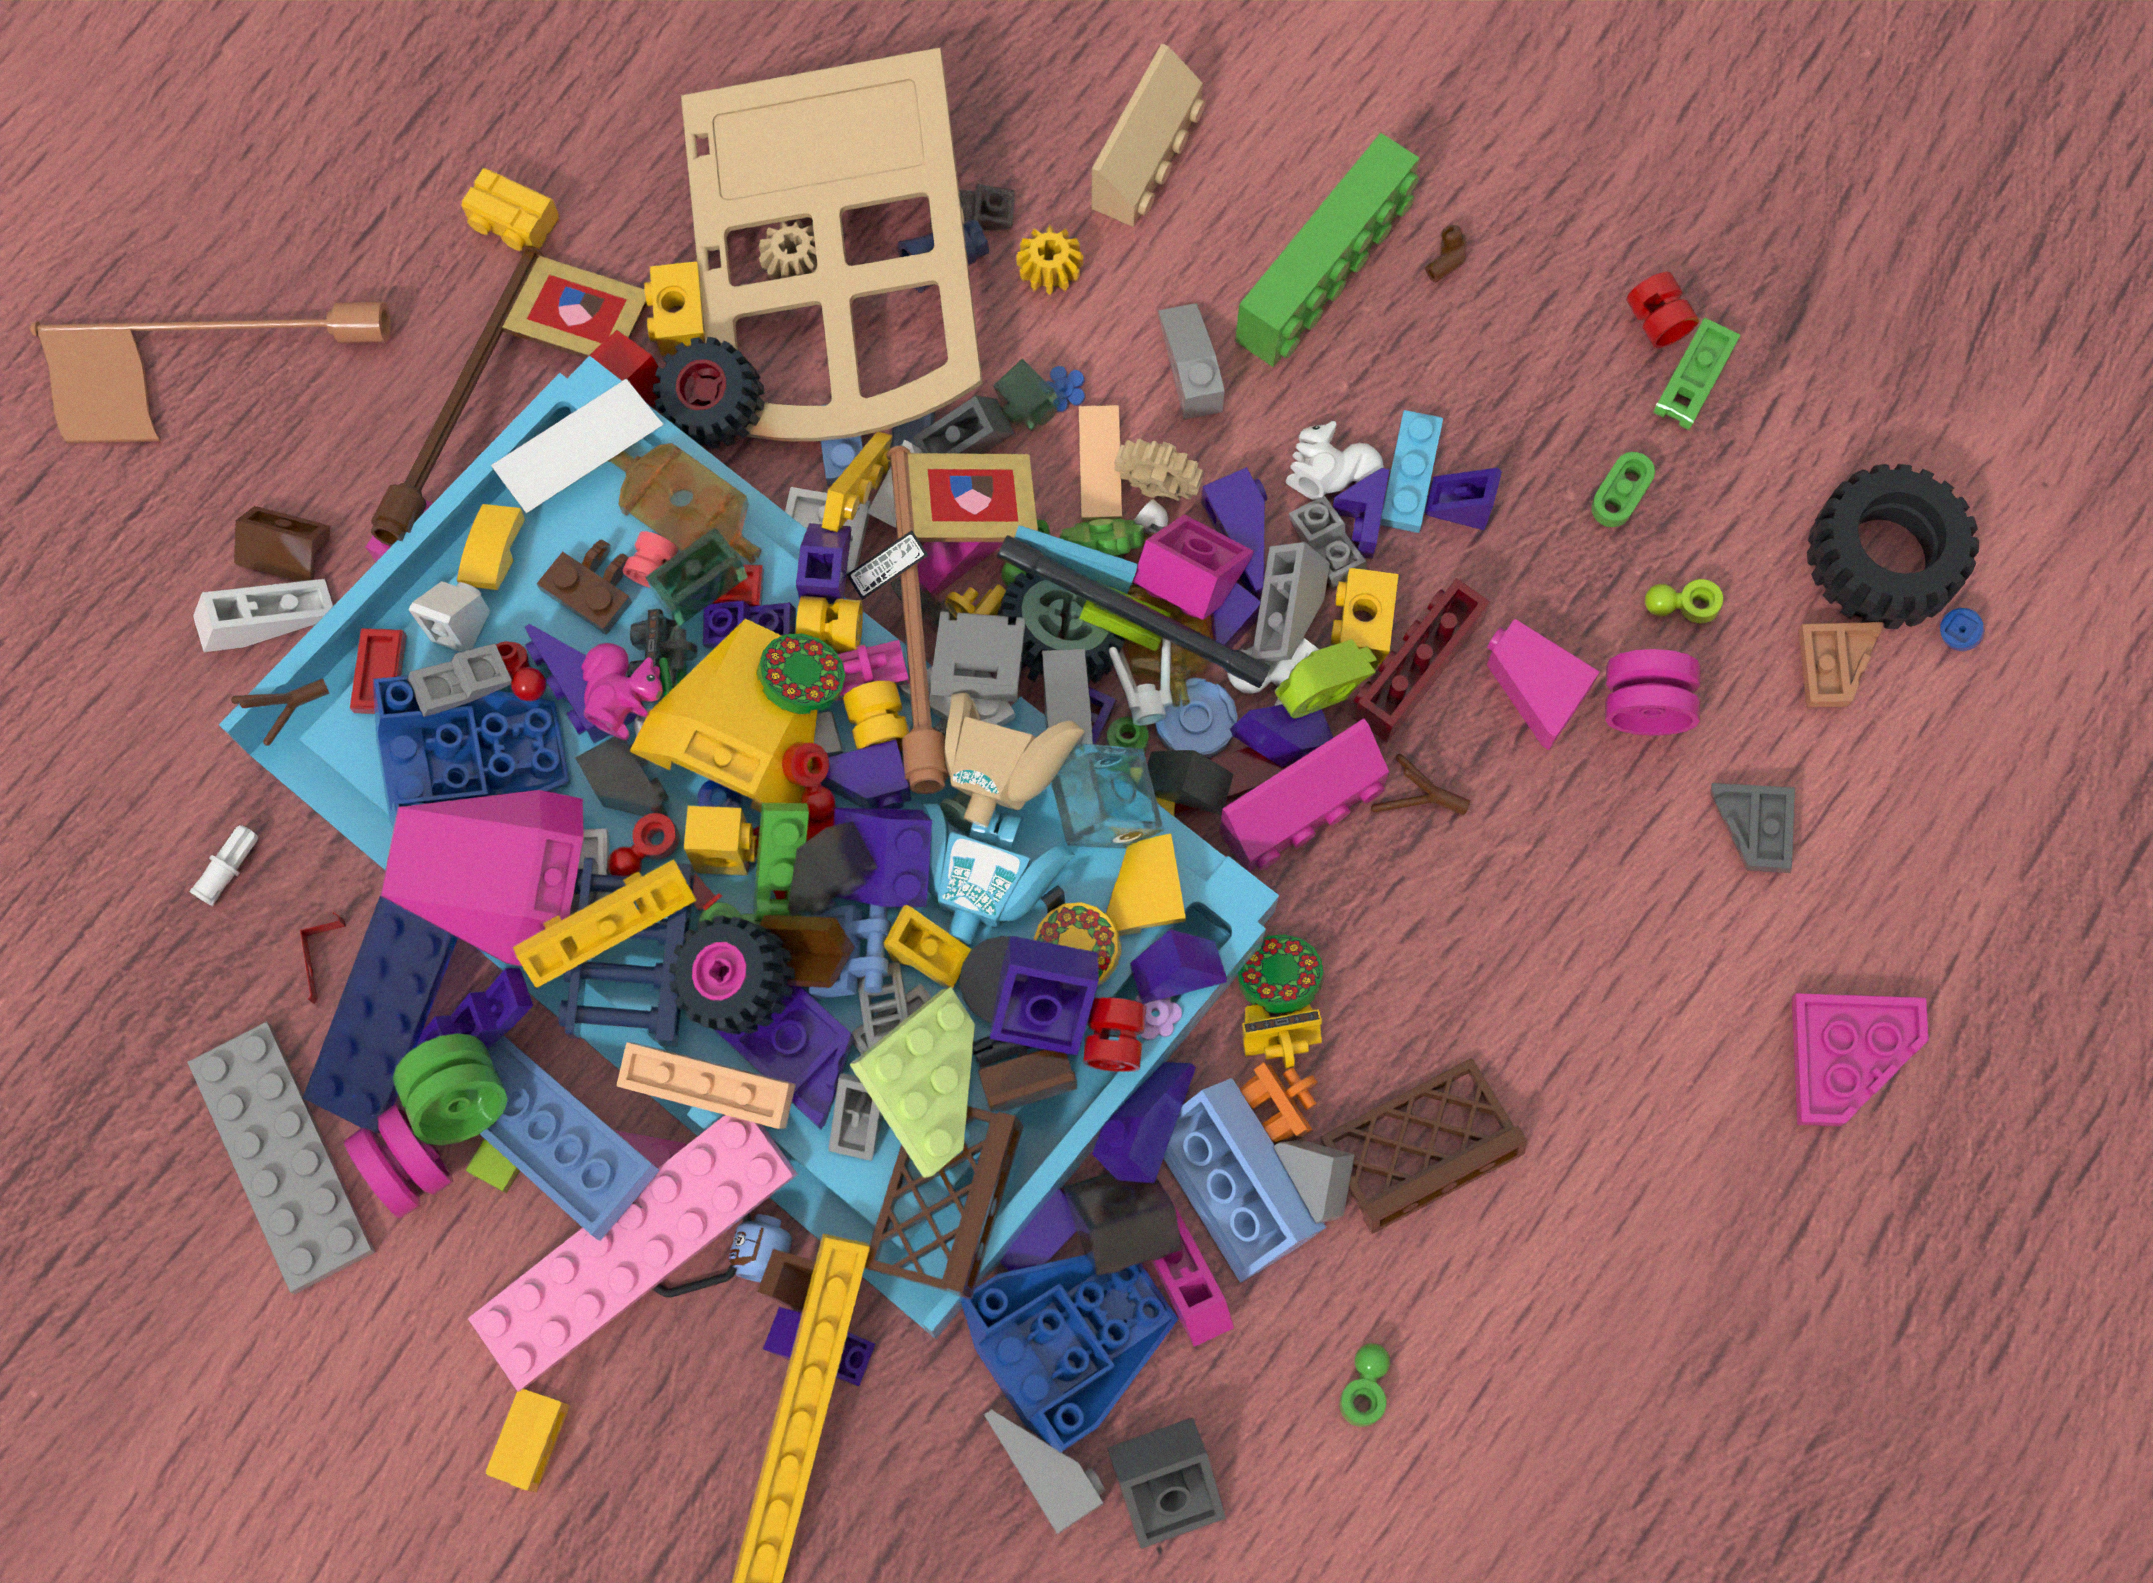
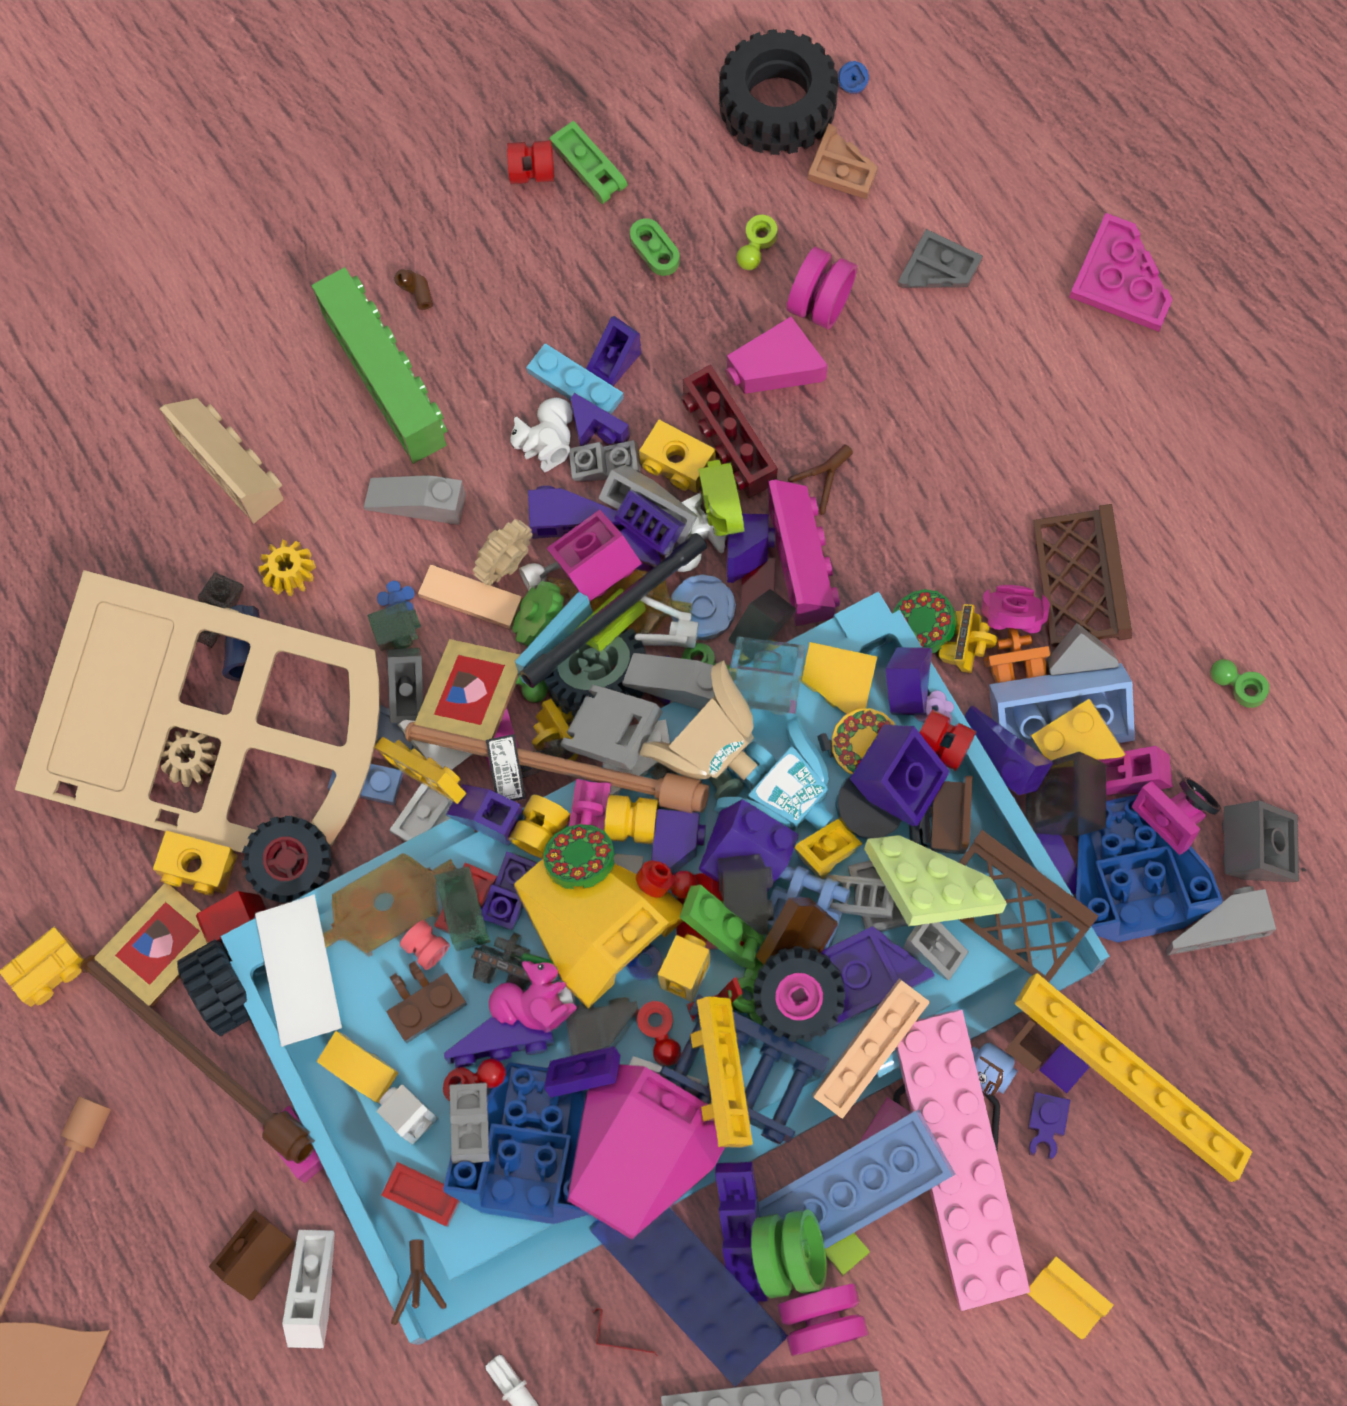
camera: 65 degrees left, 0 degrees up
(533, 371) = (214, 987): none -> black wheel
(557, 775) = (582, 1071): none -> dark purple plate
(732, 1342) = (1049, 1119): none -> dark purple plate
(1160, 1364) = (1176, 817): none -> dark pink piece
(1205, 1205) = (1076, 731): none -> yellow wing
(1265, 633) = (674, 526): none -> dark purple slope
(1332, 1091) = (1015, 608): none -> dark pink plate

